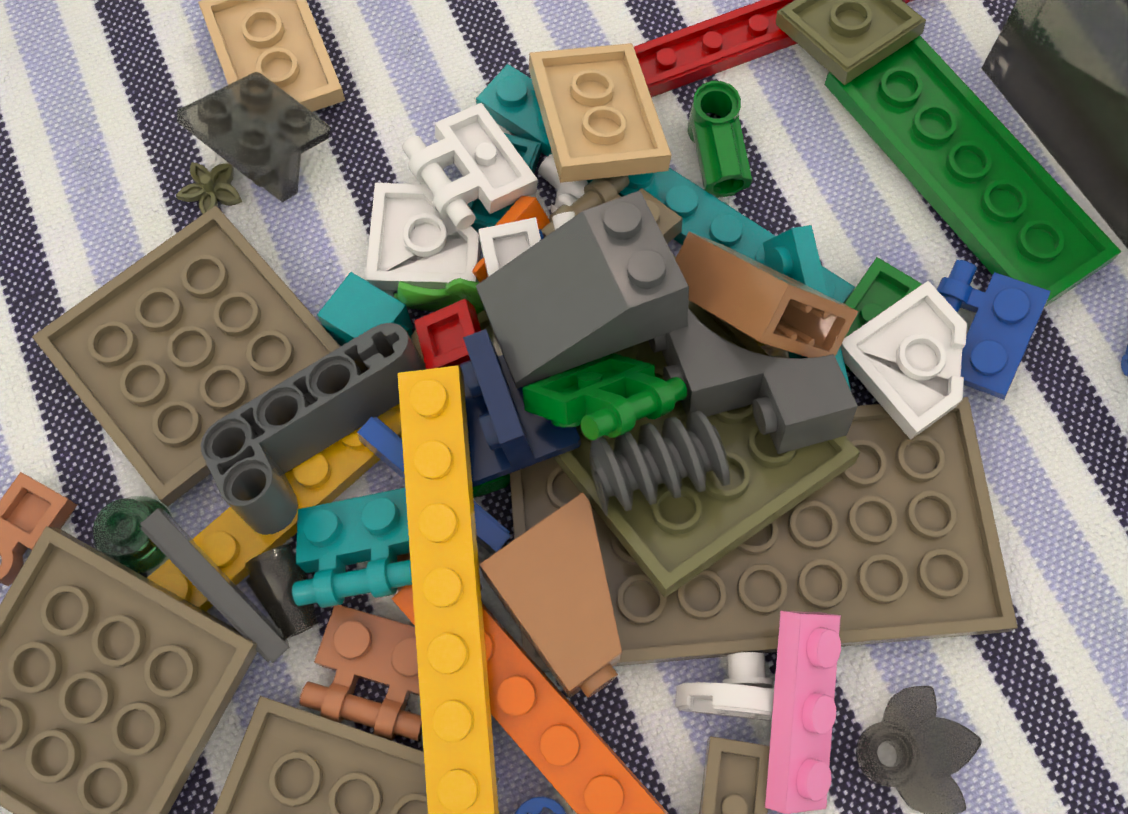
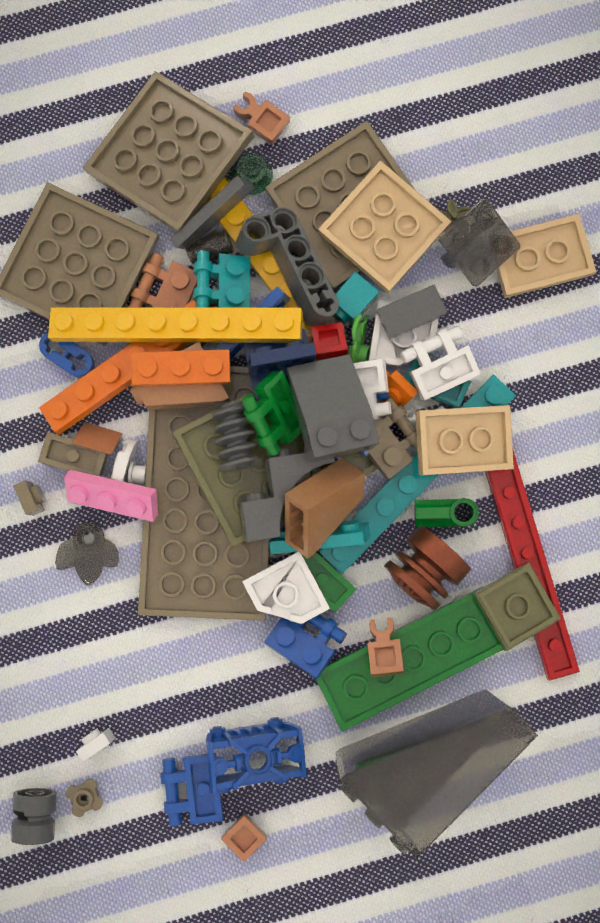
camera: 95 degrees right, 15 degrees up
(232, 277) = (384, 227): none -> tan plate
(383, 220) = (411, 312): none -> dark grey tile
(538, 589) = (180, 368): none -> orange plate
(689, 764) = (97, 438): none -> nougat sticker
(816, 141) = (427, 567): none -> copper wheel
(978, 190) = (384, 654): none -> nougat plate

